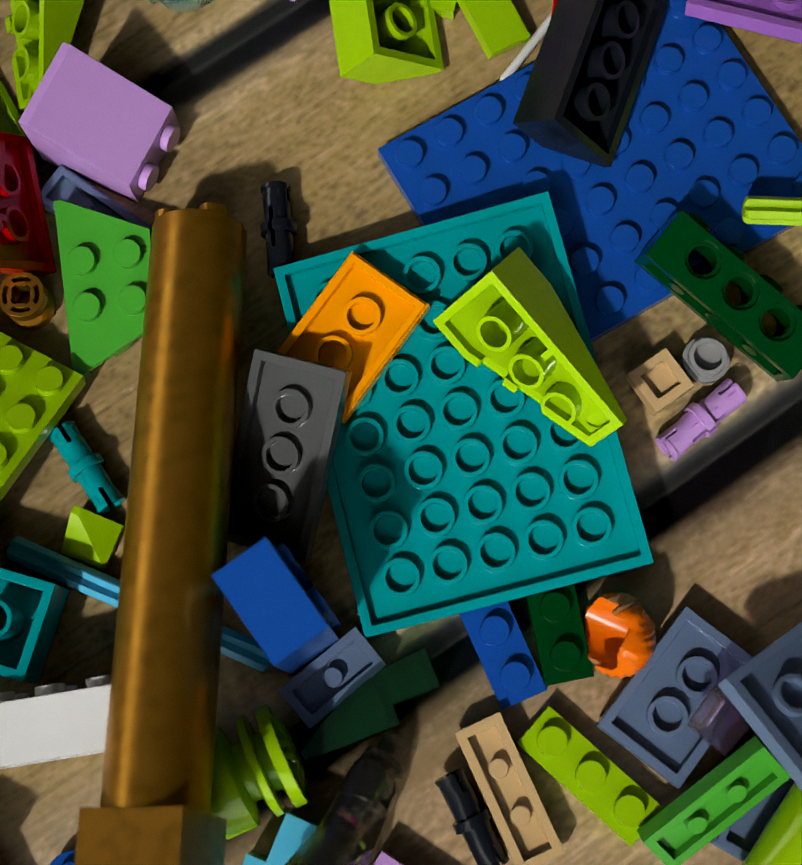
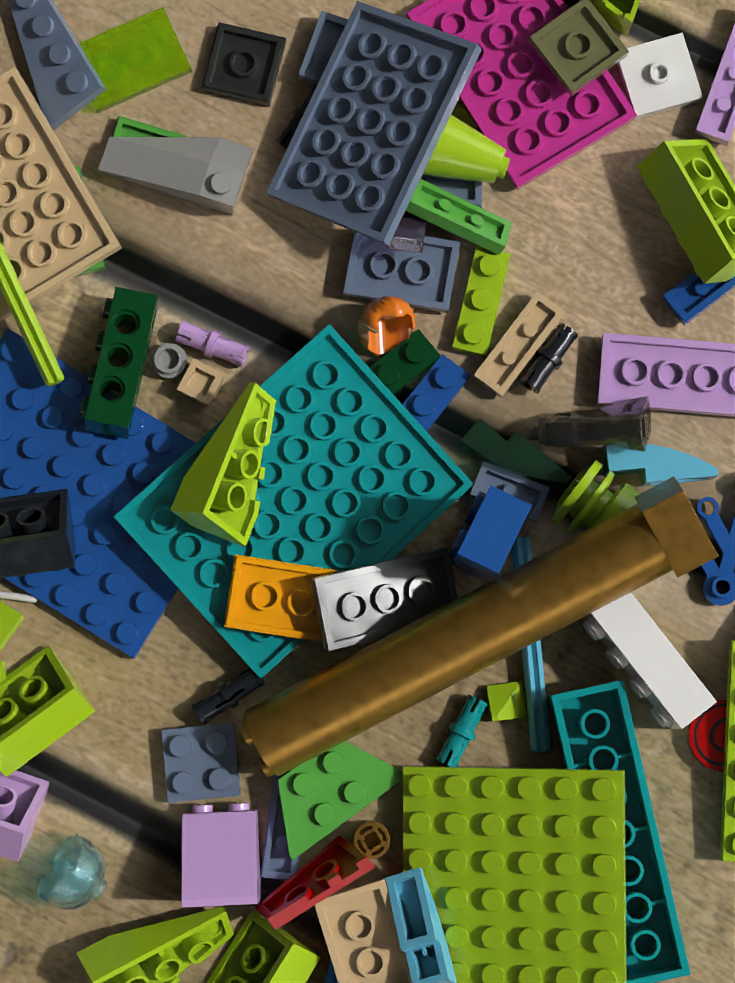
camera: 120 degrees left, 5 degrees up
(222, 164) = (201, 762): none -> sand blue plate

